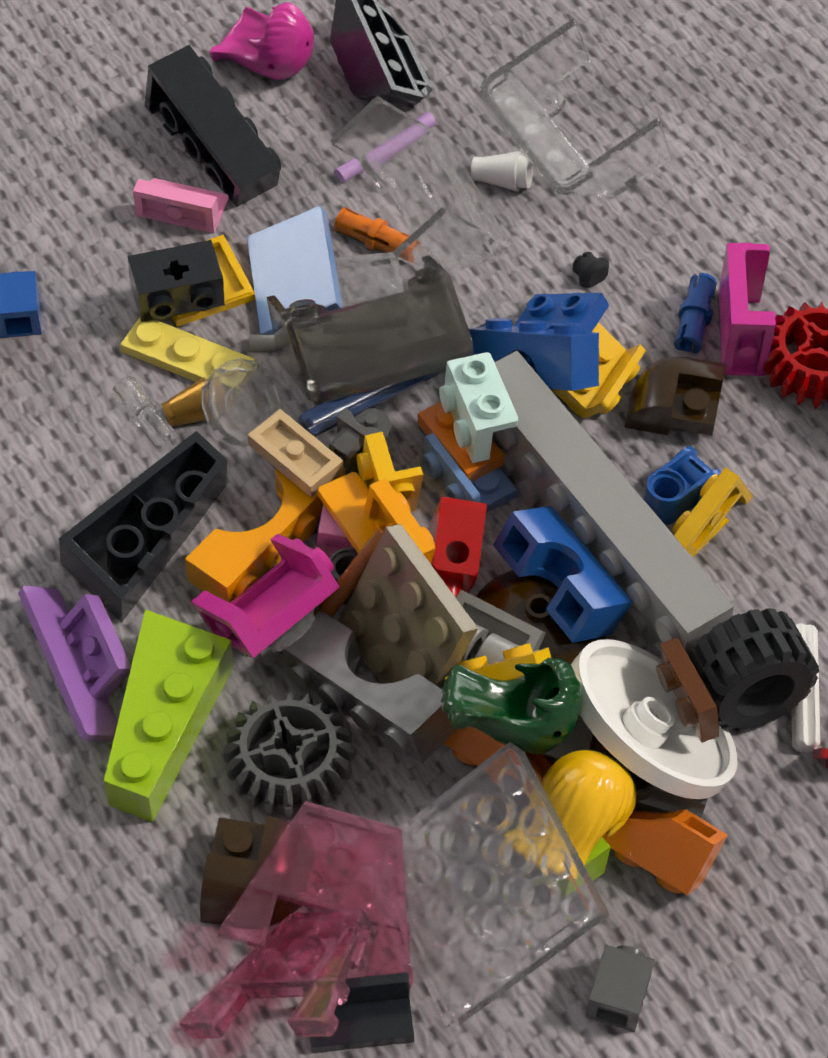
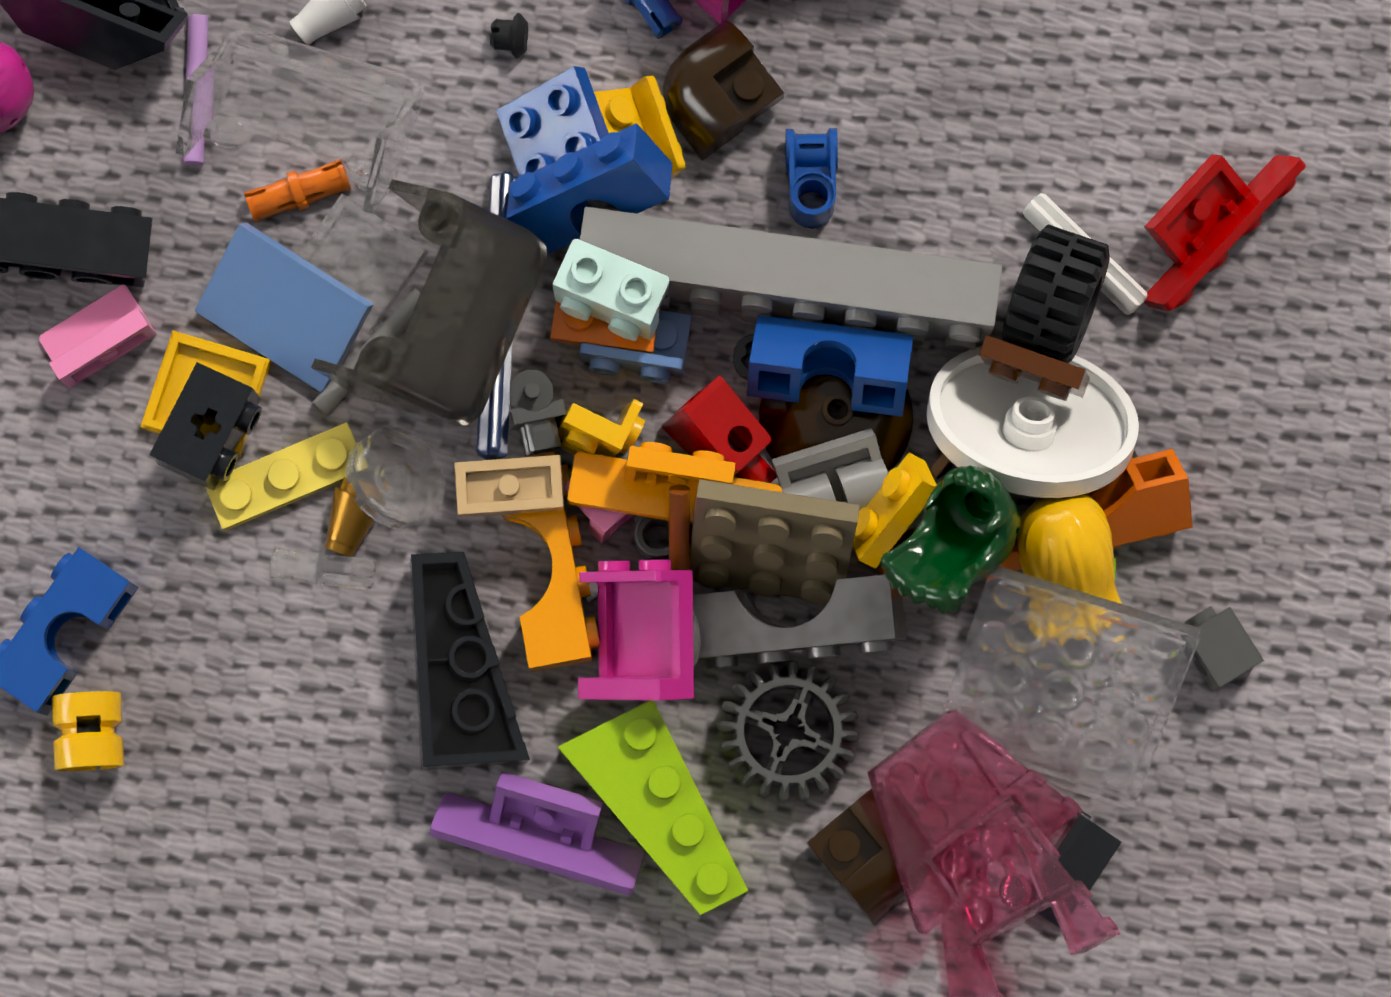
camera: 45 degrees left, 25 degrees up
(708, 517) = (864, 162): yellow wing -> none

